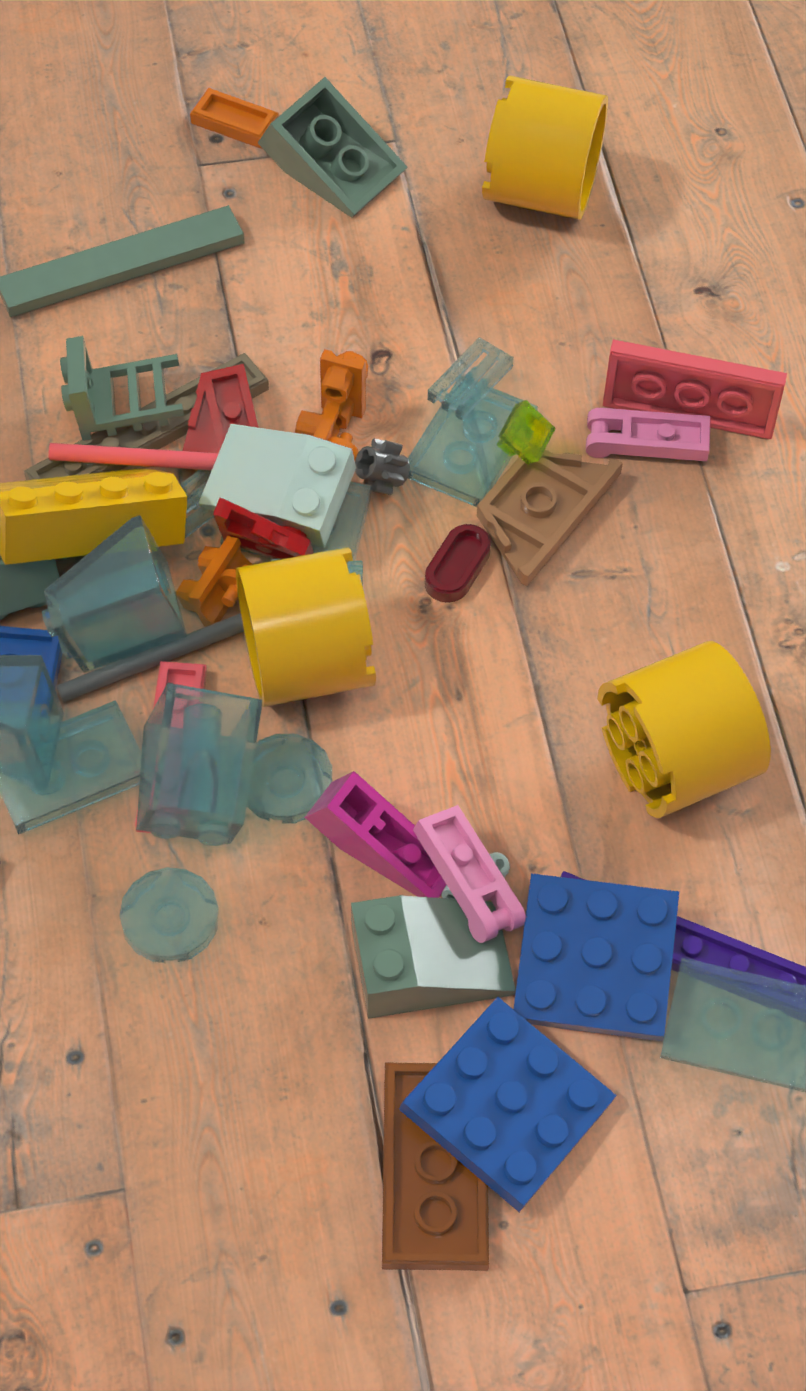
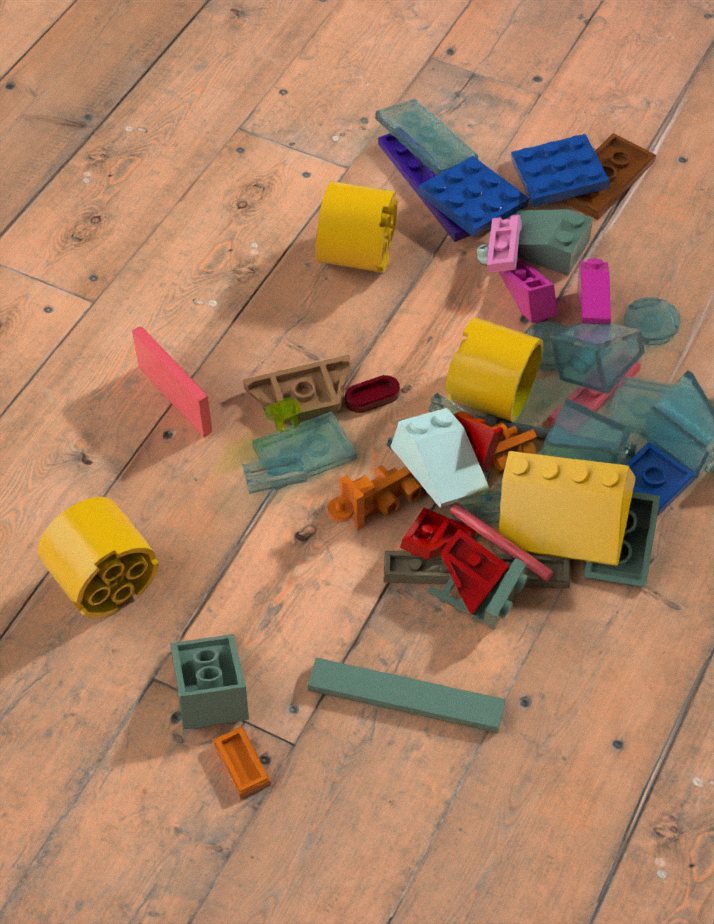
camera: 140 degrees left, 5 degrees down
(137, 383) = (472, 569): none -> red wing
(267, 858) = (594, 291): none -> dark pink slope
(382, 466) = (369, 452): dark grey gear -> none
(648, 434) = (217, 392): bright pink plate -> none

